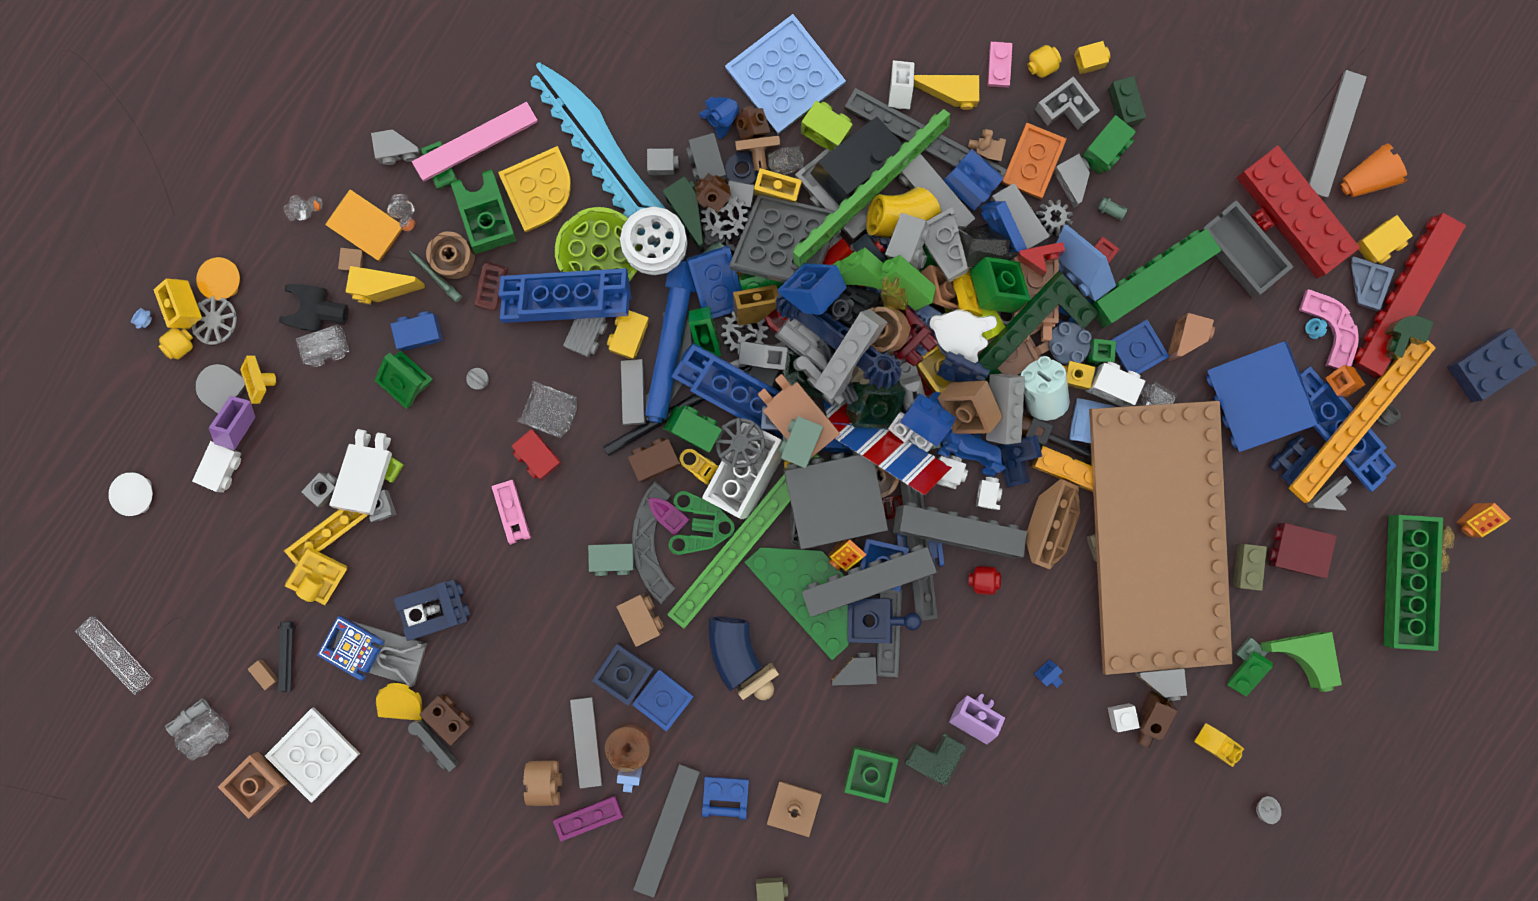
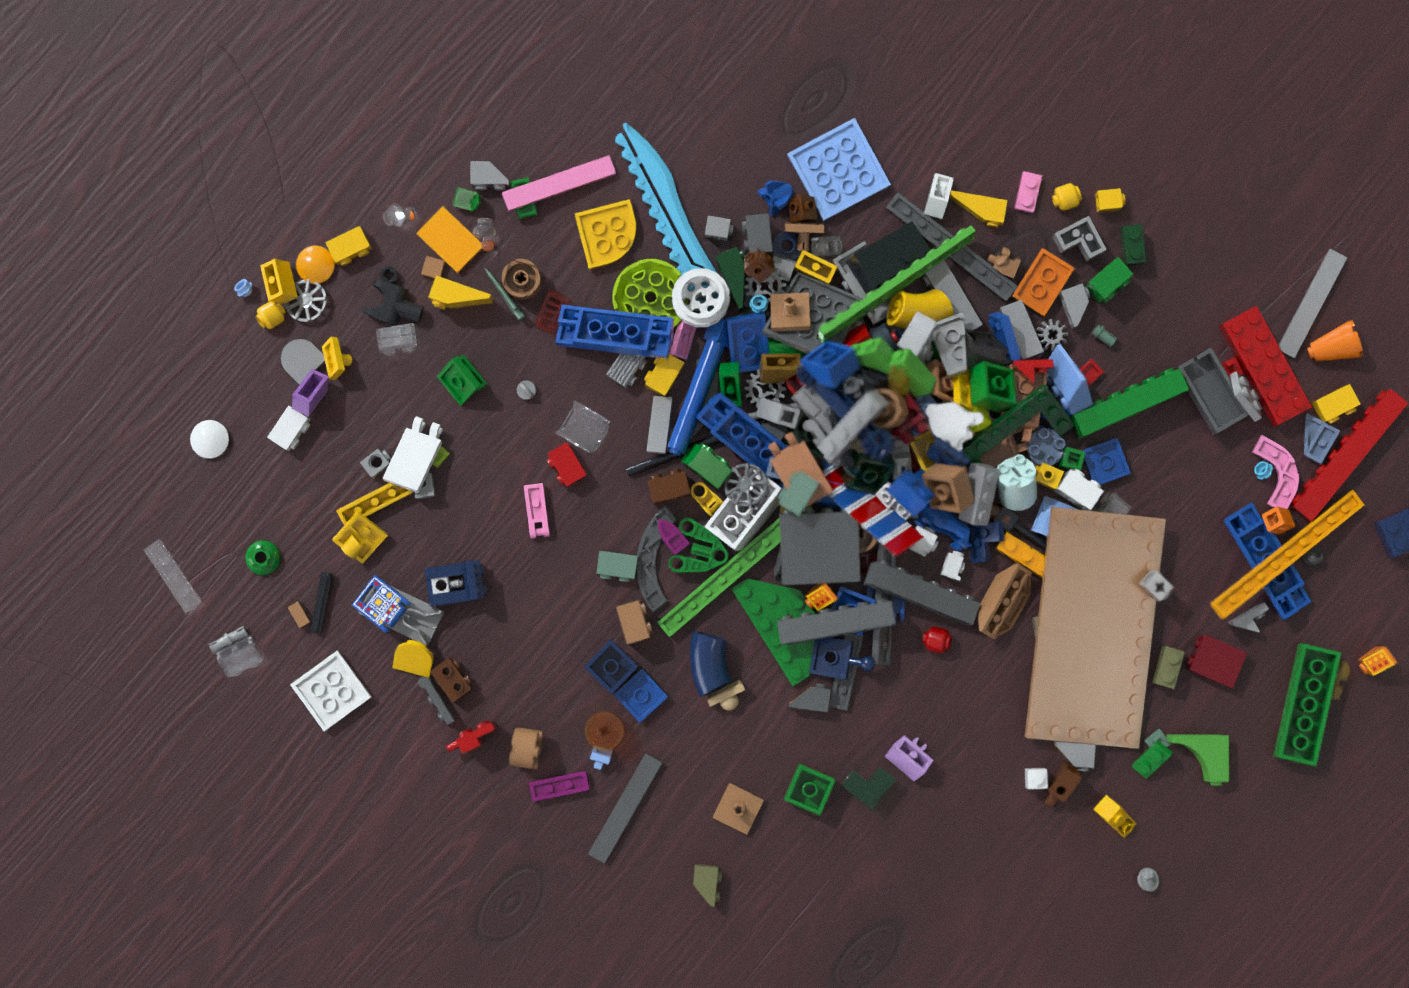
camera: 10 degrees right, 0 degrees up
(222, 617) = (272, 561): none -> green piece
(251, 251) = (349, 246): none -> yellow brick
(253, 784) = (277, 707): nougat brick -> none
(296, 272) = (393, 271): none -> black bush
(376, 177) = (467, 199): none -> green plate
(416, 331) = (480, 340): blue brick -> none
(479, 783) = (471, 739): none -> red plate
(484, 207) = (556, 242): green brick -> none
(586, 742) = (568, 720): light grey tile -> none
(643, 293) = (682, 340): none -> bright pink plate
(720, 231) = (758, 299): none -> medium azure plate
(725, 790) = (680, 782): blue plate -> none
(757, 239) = (790, 312): none -> medium nougat tile
(825, 126) = (866, 223): lime brick -> none
(973, 179) = (986, 290): blue bracket -> none
(1049, 674) = (978, 730): blue tile -> none
(1189, 334) = (1151, 456): nougat slope -> none
(1216, 475) = (1148, 584): none -> light grey brick
(1262, 396) = (1204, 521): blue panel -> none
(1285, 247) = (1246, 396): none -> light grey plate
(1293, 470) = (1212, 579): dark blue plate -> none
(1405, 330) = (1338, 484): dark green brick -> none

